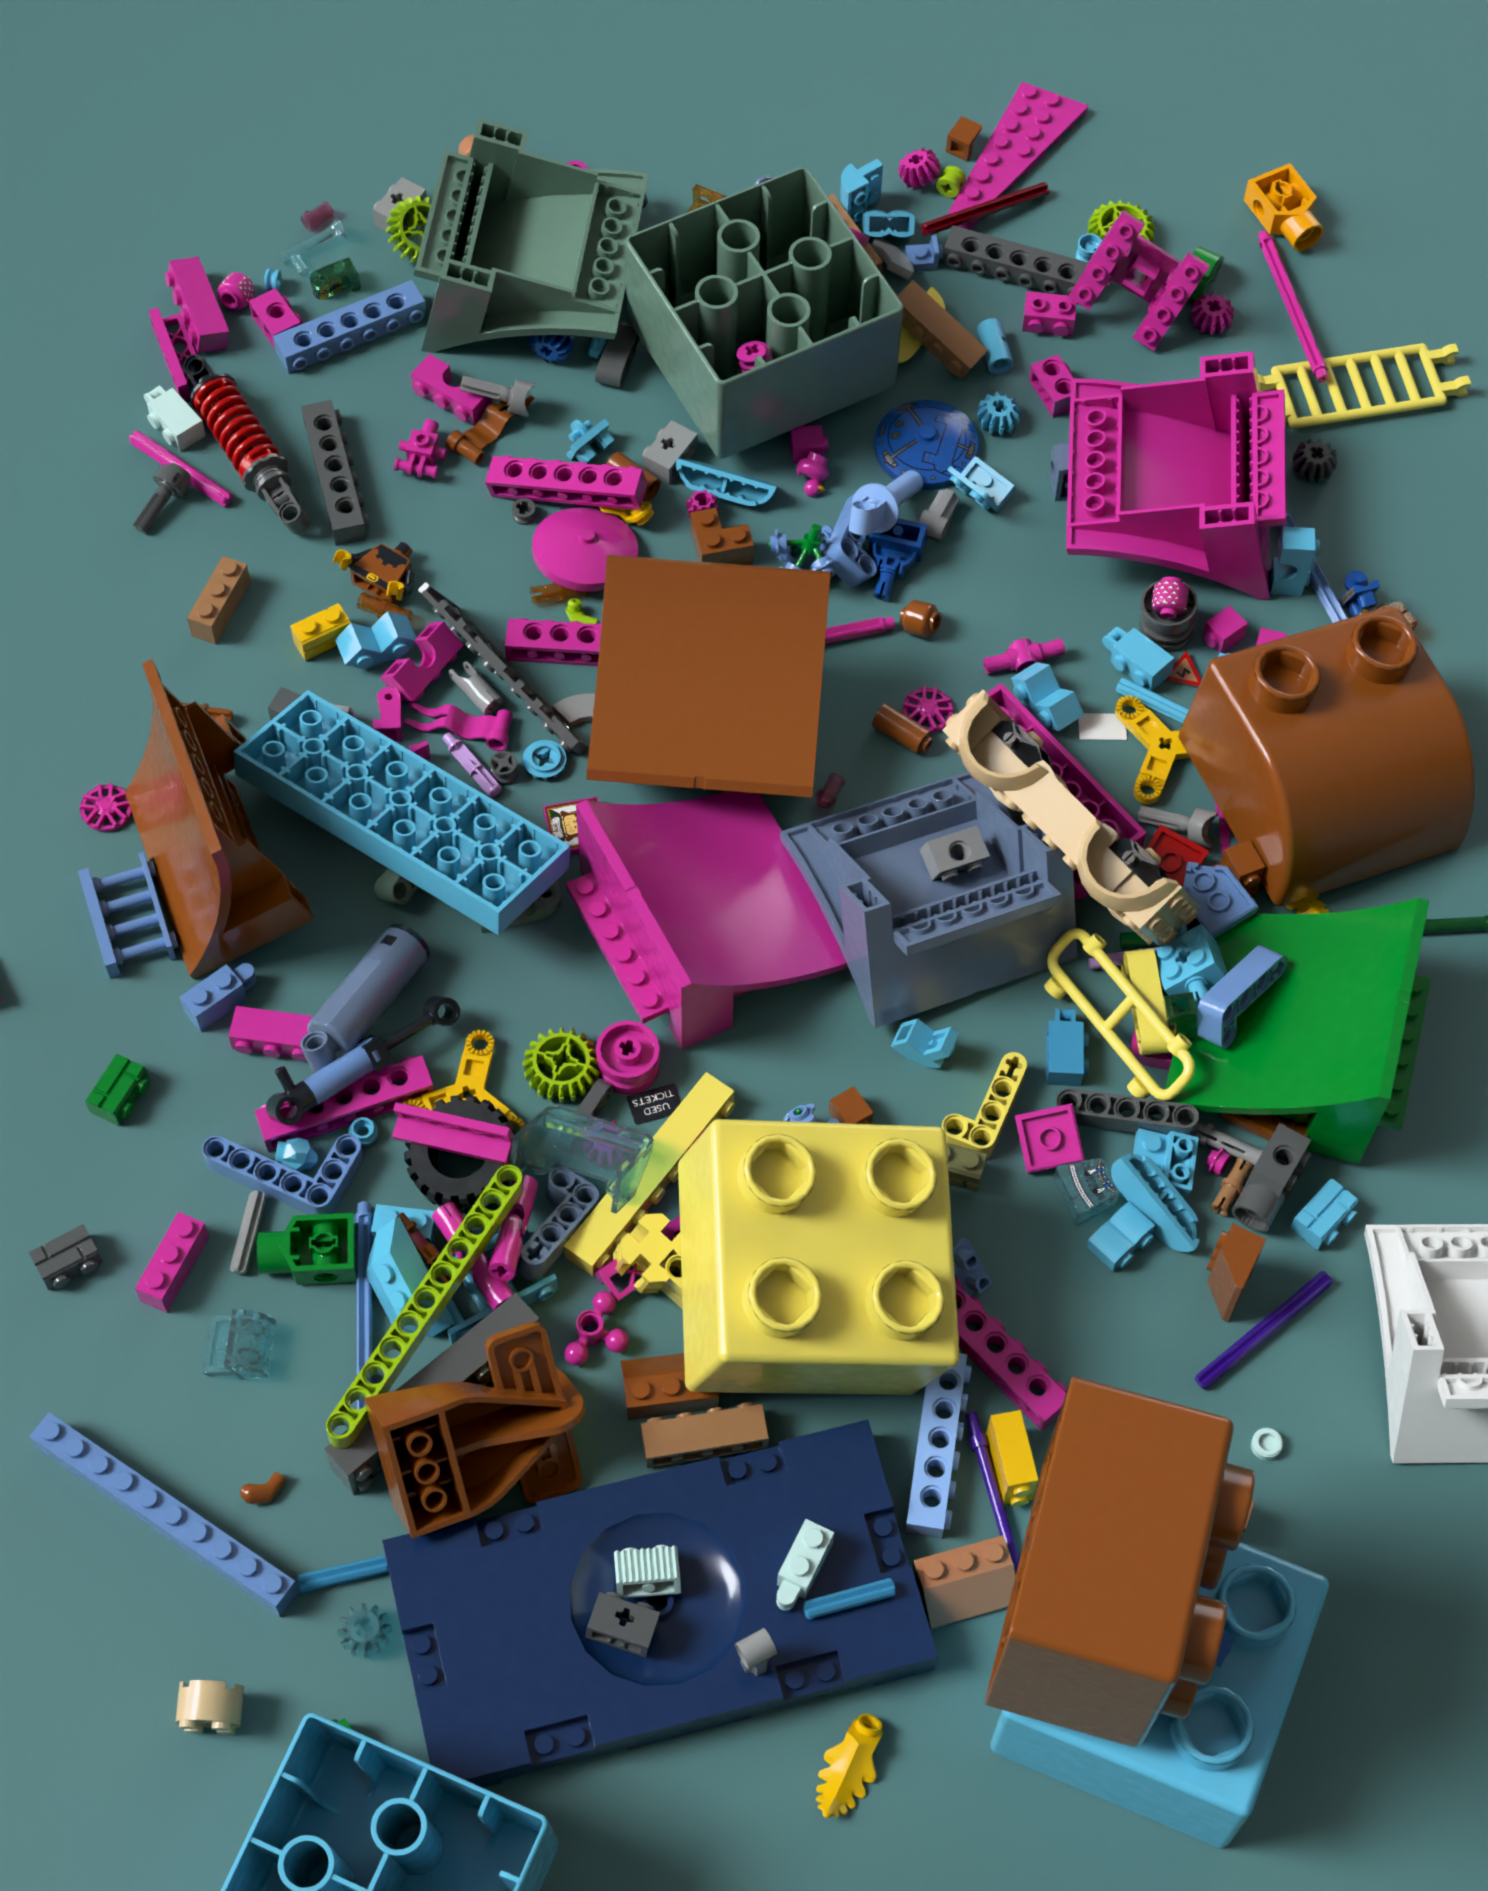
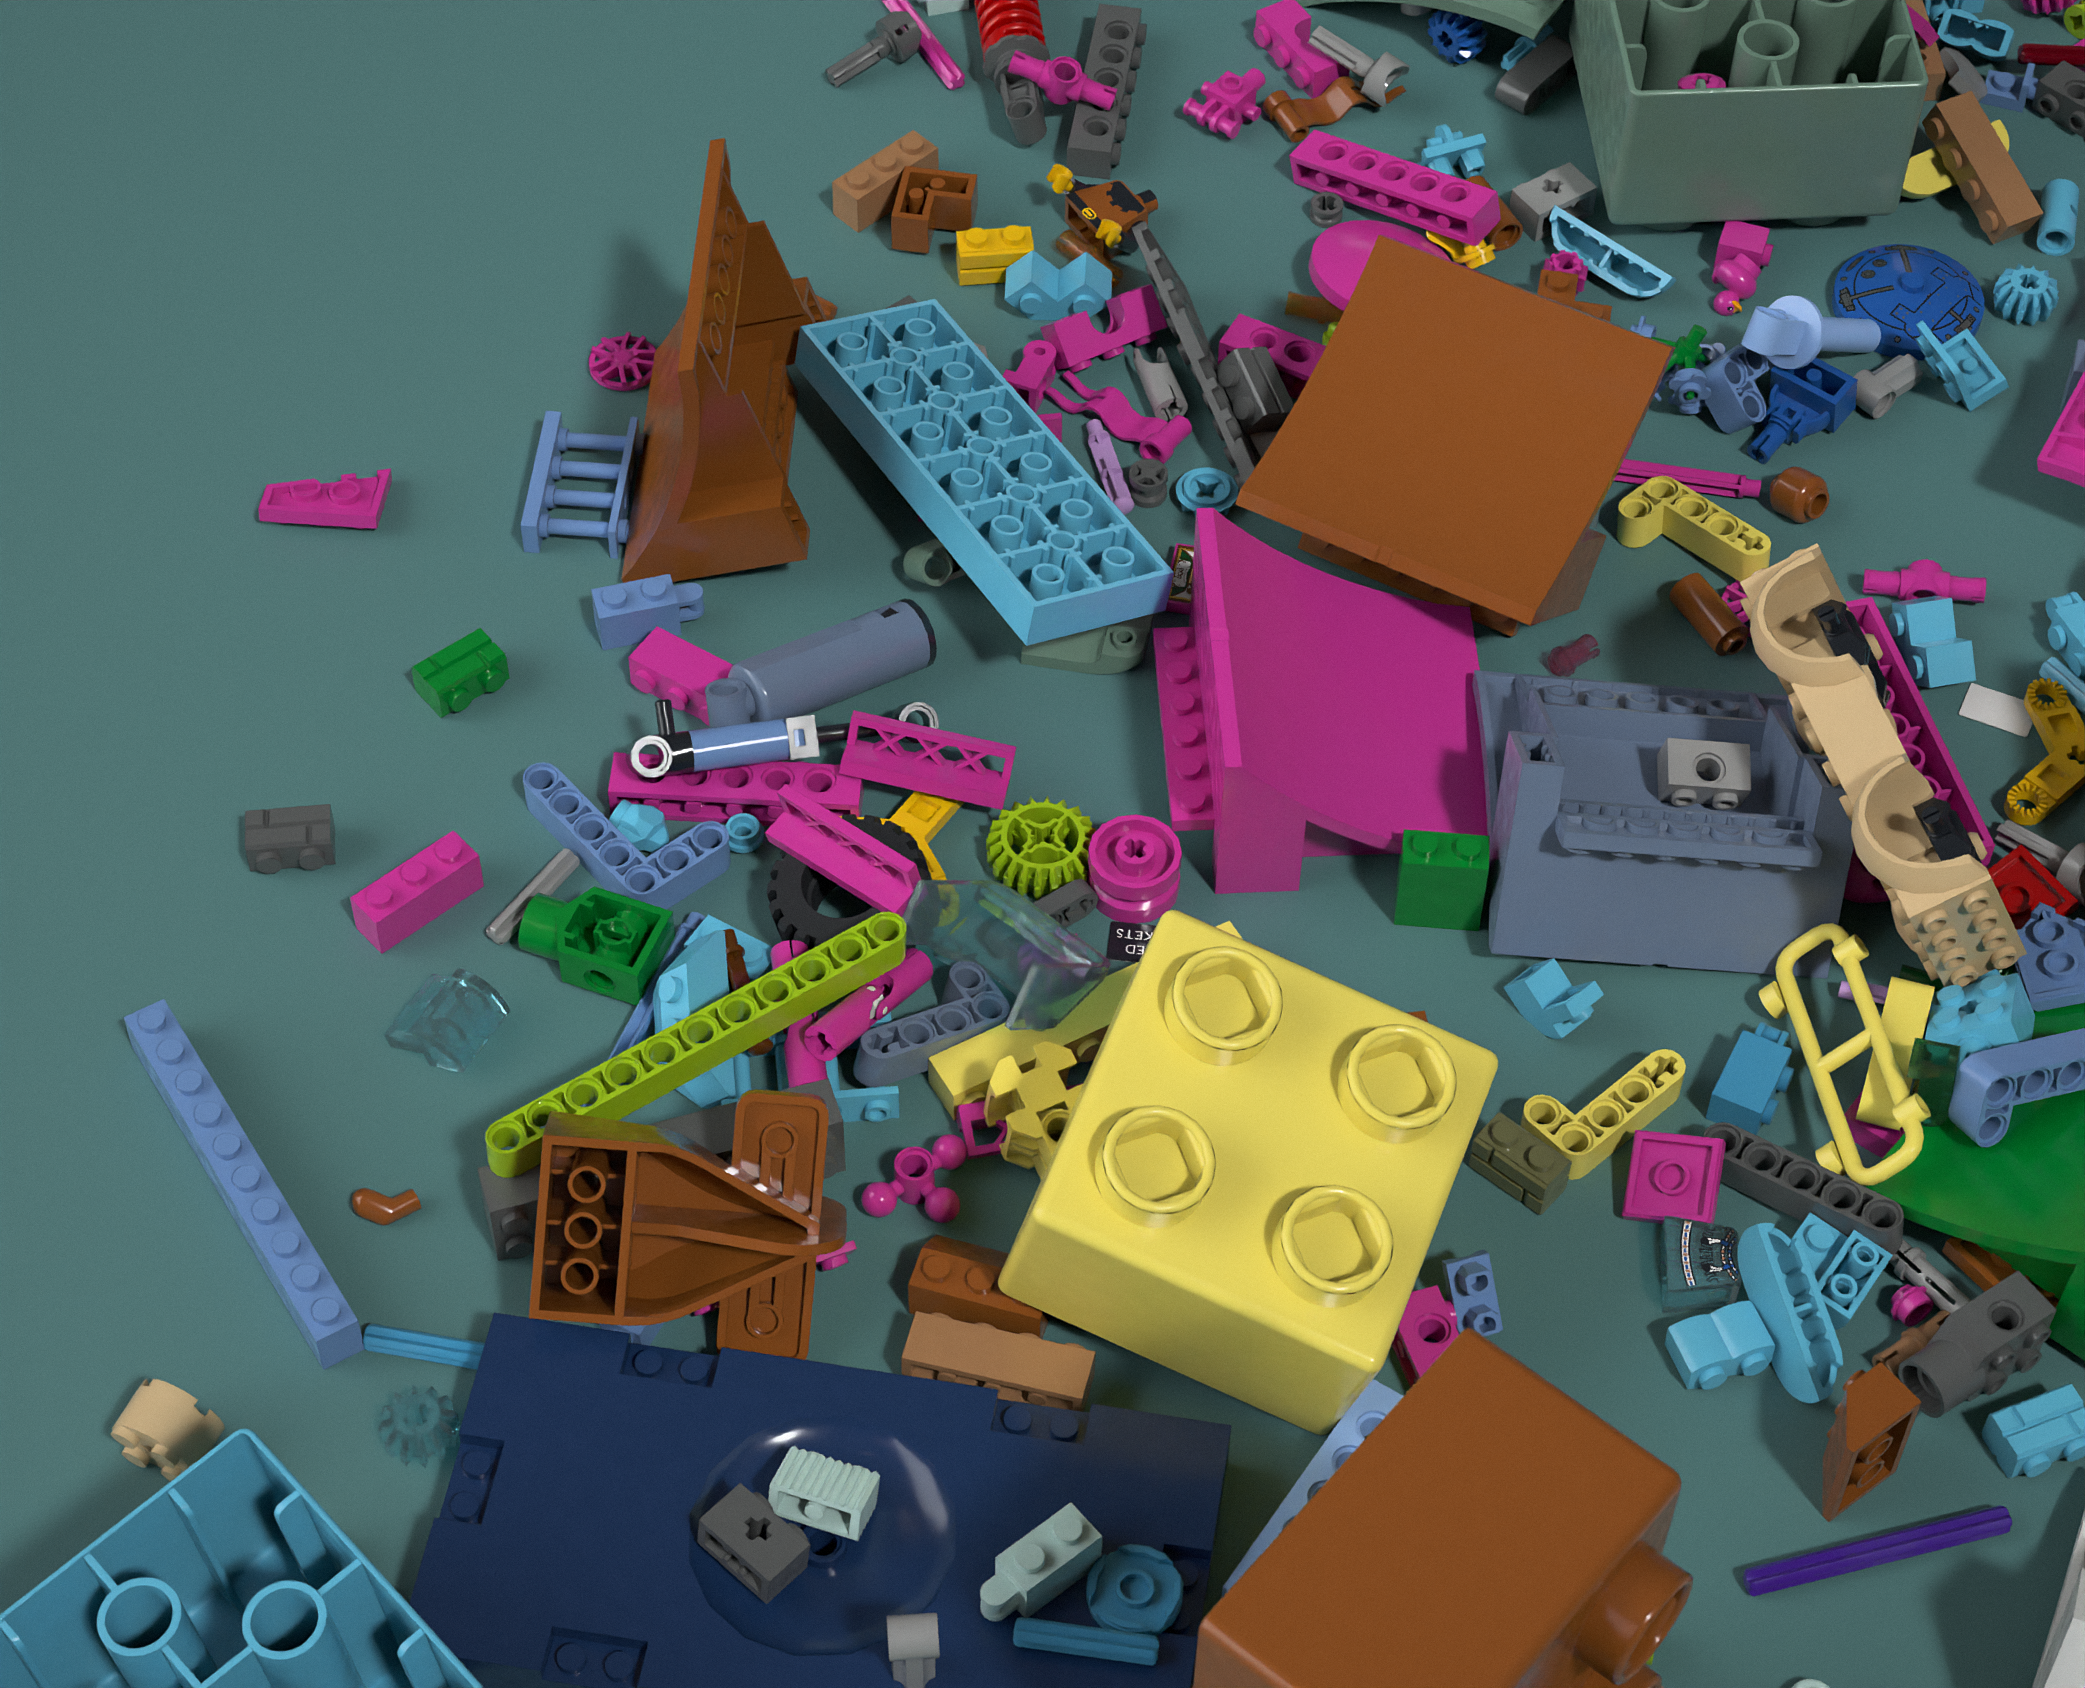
camera: 25 degrees right, 10 degrees down
(259, 605) = (932, 201): none -> dark orange brick
(309, 472) = (1062, 80): none -> dark pink pin
(464, 1041) = (923, 772): none -> dark pink fence
(545, 673) = (1254, 389): none -> dark grey brick
(825, 991) = (1441, 880): none -> green brick
(846, 660) = (1693, 522): none -> light yellow beam
(862, 1553) = (1134, 1590): none -> dark azure tile

